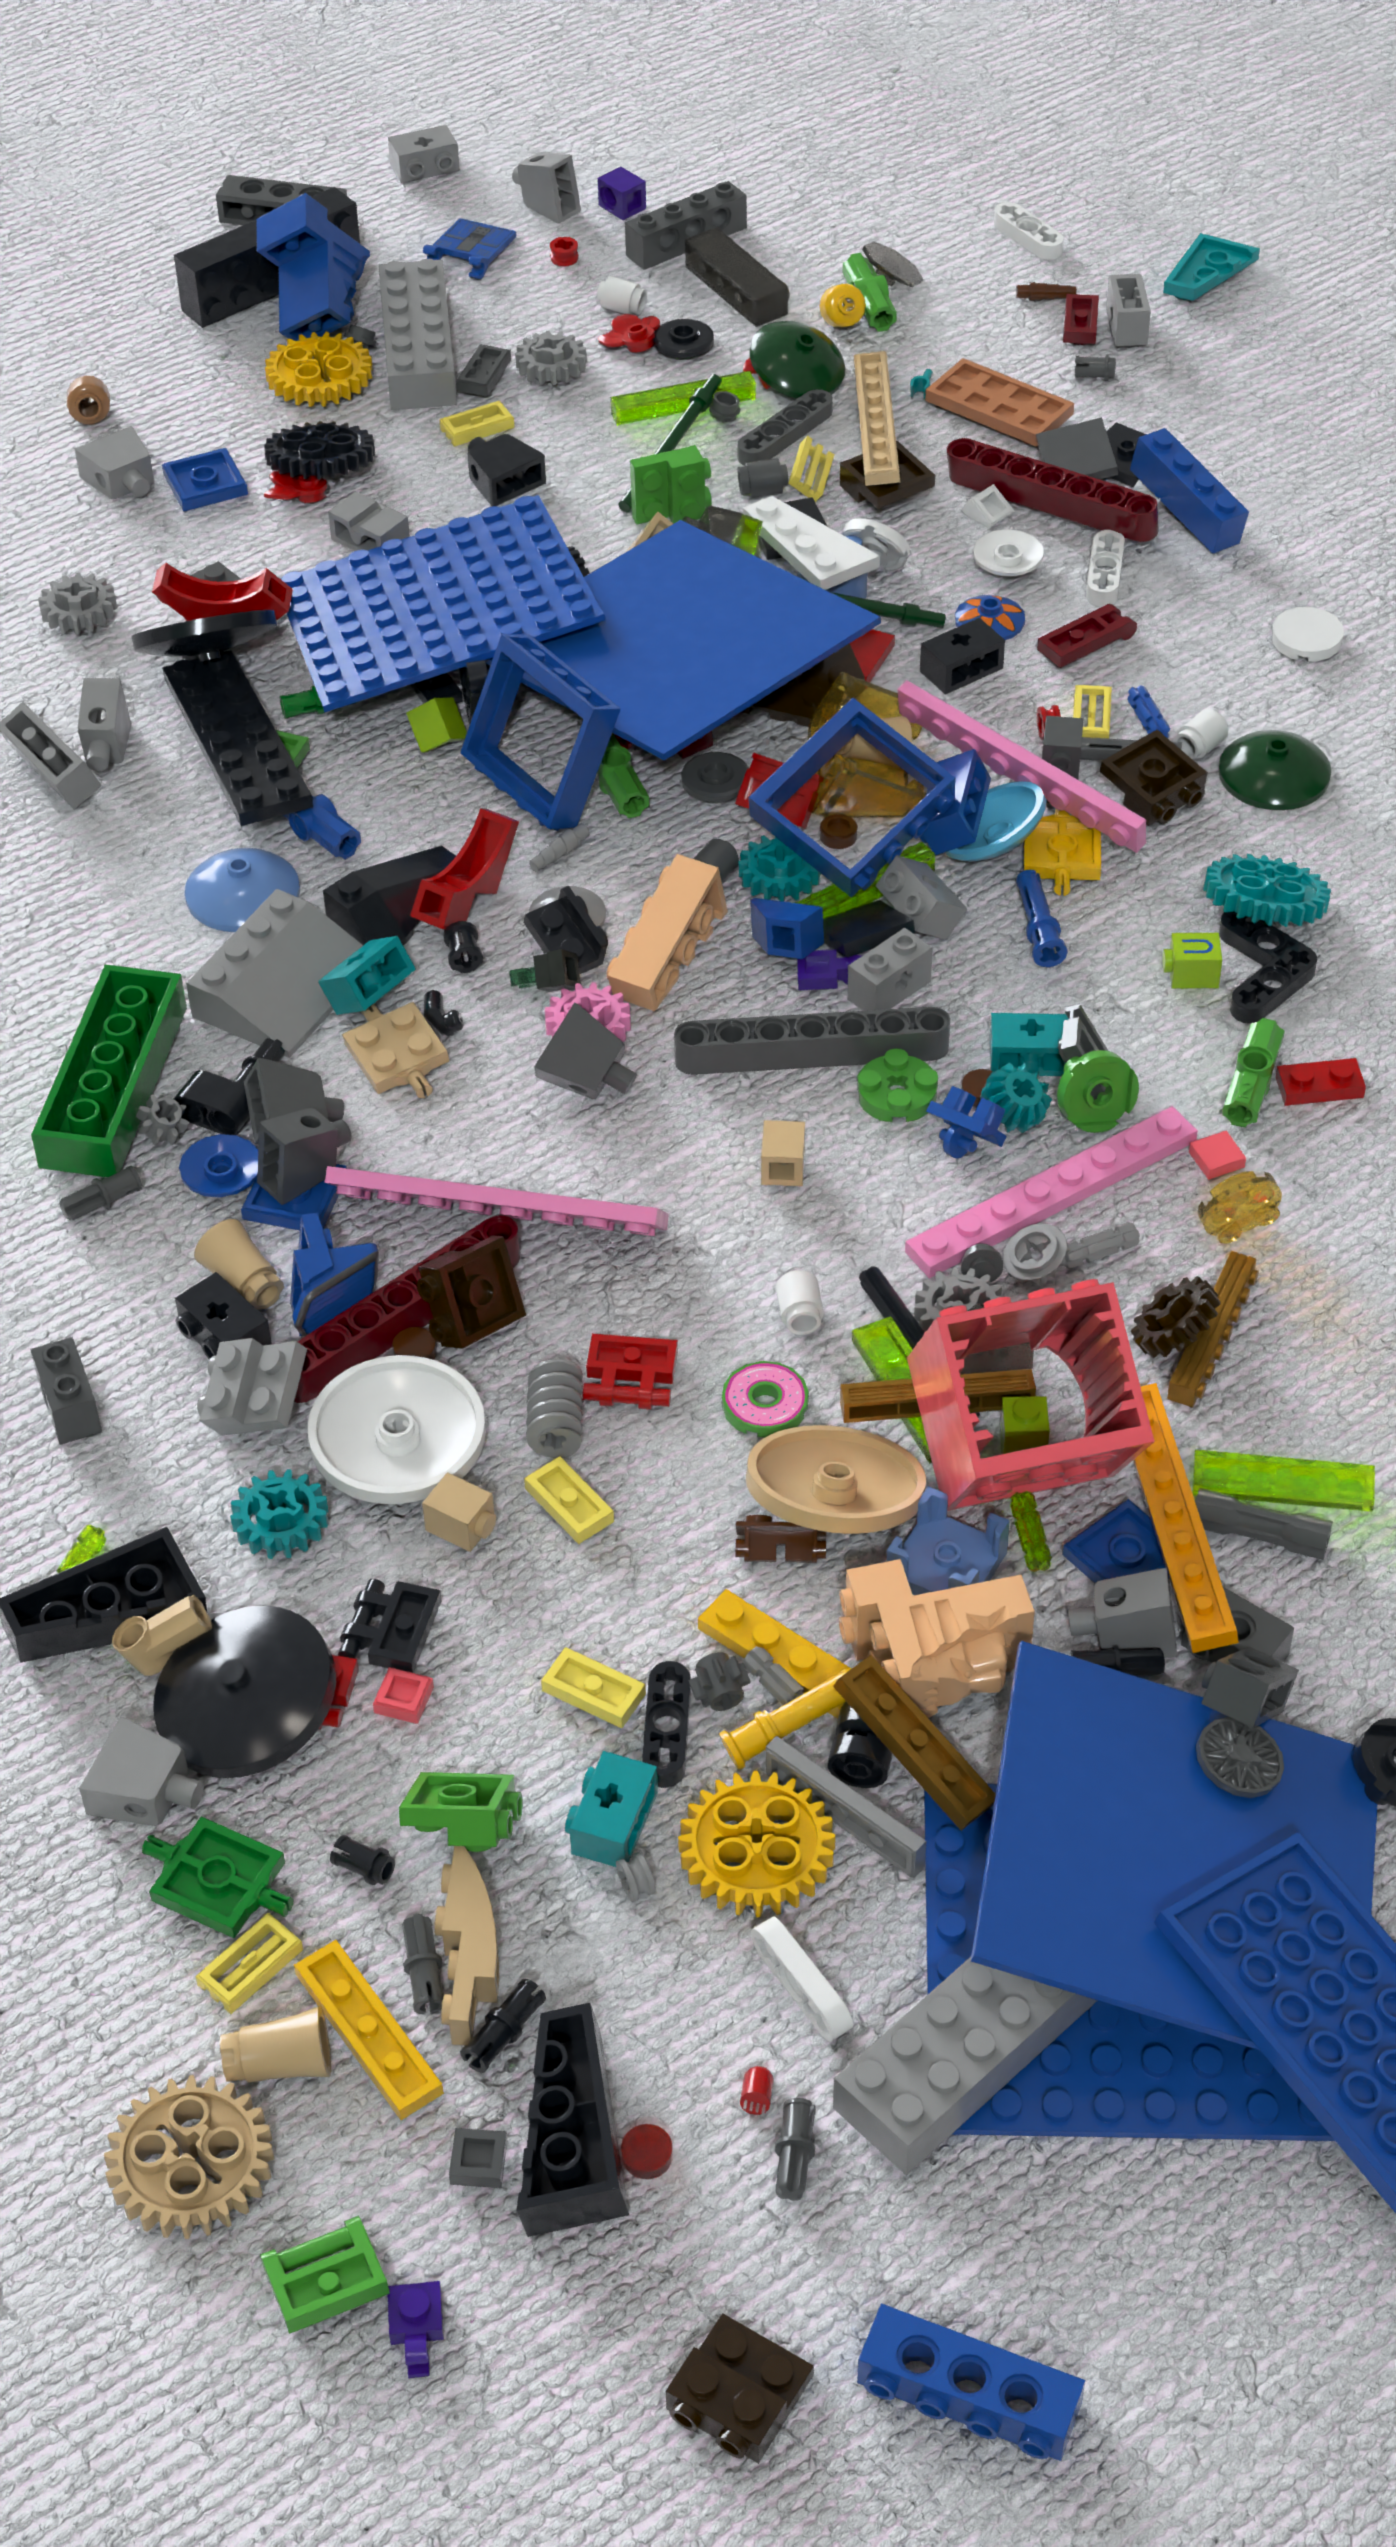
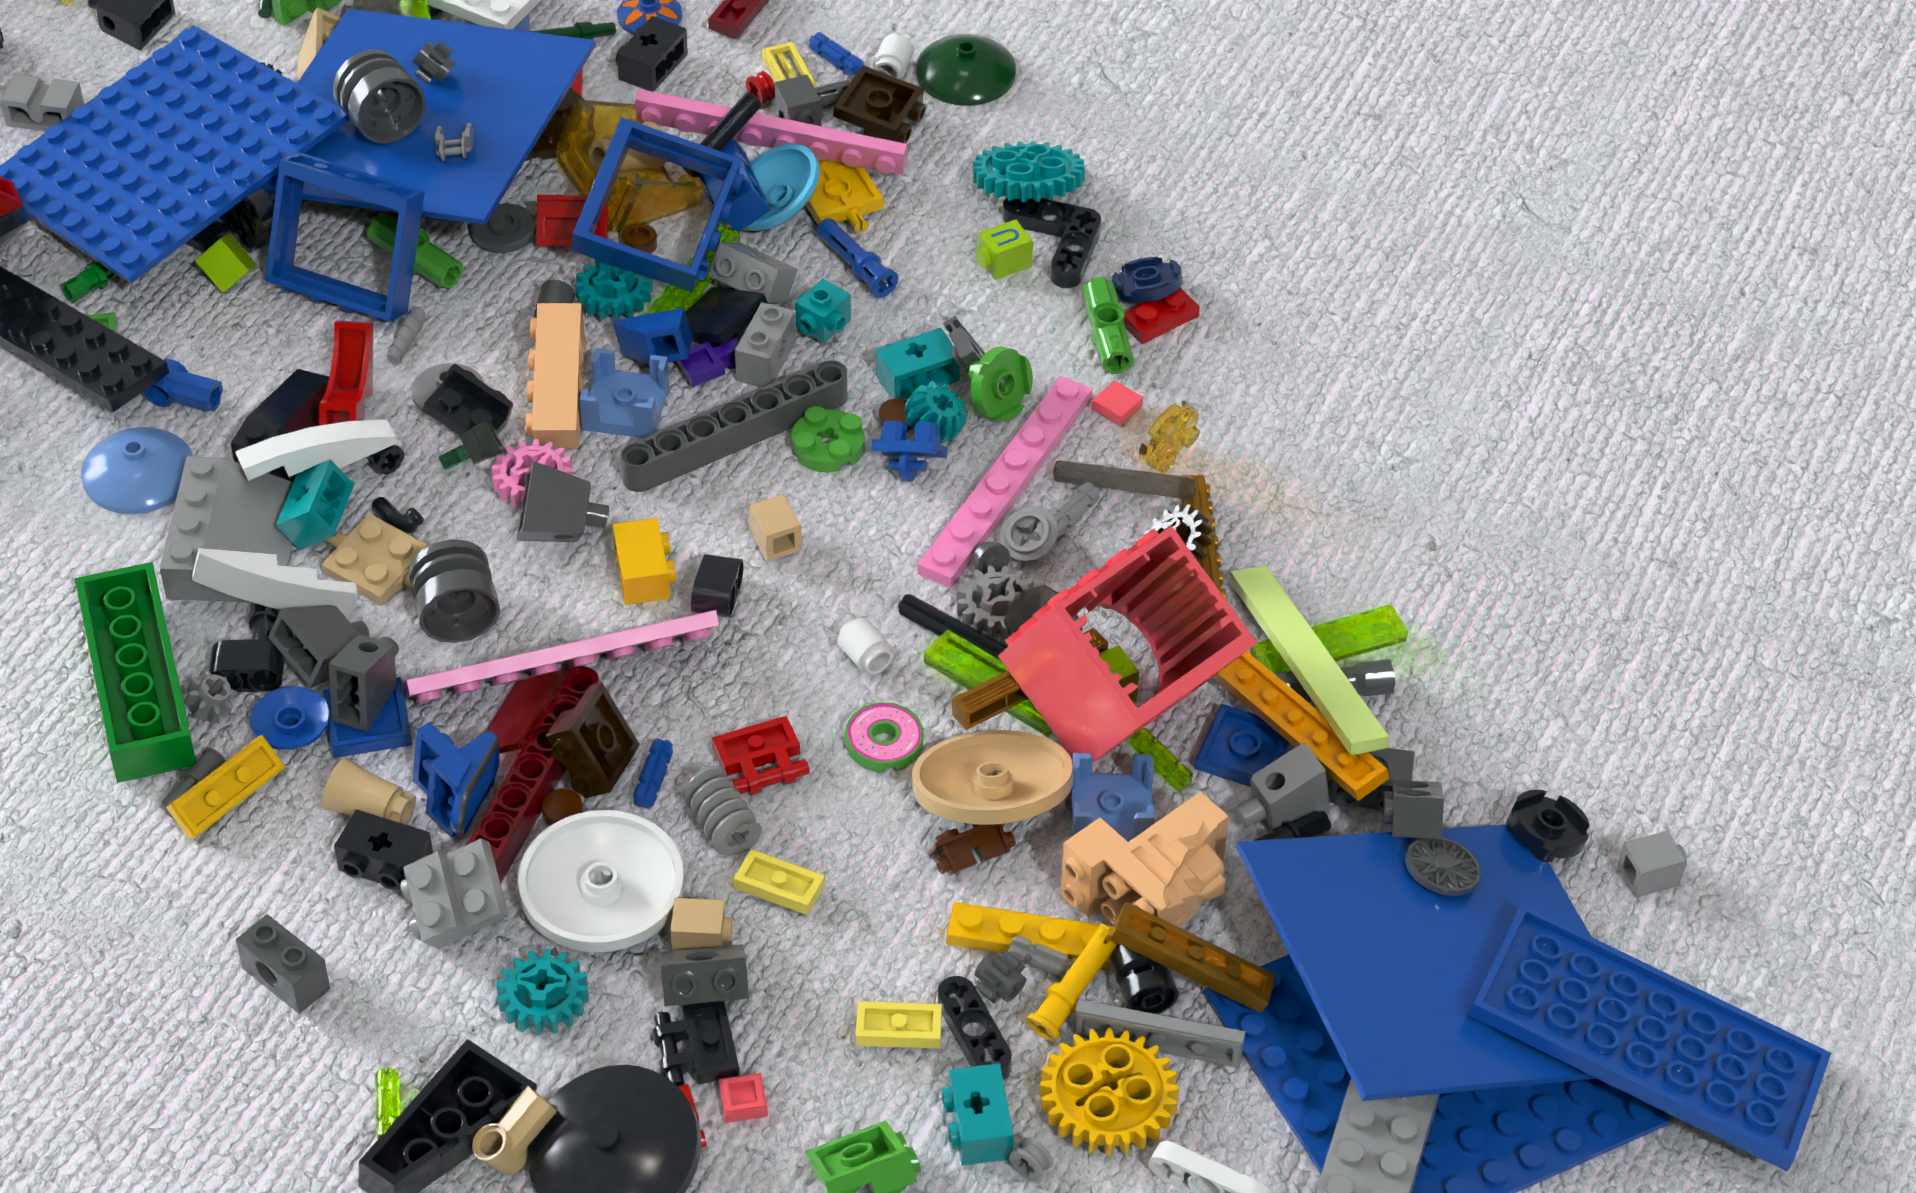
camera: 30 degrees left, 0 degrees up
(124, 1207) = (225, 787): none -> yellow tile
(268, 1028) = (264, 582): none -> white slope
(413, 922) = (308, 447): none -> white slope
(429, 1240) = (524, 709): none -> clear red piece
(433, 1559) = (704, 975): none -> dark grey brick
(436, 1101) = (453, 591): none -> dark grey wheel
(519, 1347) = (652, 773): none -> blue axle
(635, 605) = (379, 96): none -> dark grey wheel
(637, 1139) = (642, 561): none -> yellow brick
(692, 677) = (466, 143): none -> light grey piece
(693, 1188) = (717, 585): none -> black beam
(712, 590) = (433, 62): none -> dark grey gear
(721, 978) = (624, 400): none -> medium blue panel
(966, 958) = (823, 311): none -> teal brick
(974, 744) = (730, 125): none -> black axle
(1170, 1234) = (1125, 479): none -> clear smoke axle
(1236, 1490) = (1309, 660): none -> yellowish green tile
(1325, 1041) = (1147, 280): none -> dark blue tile

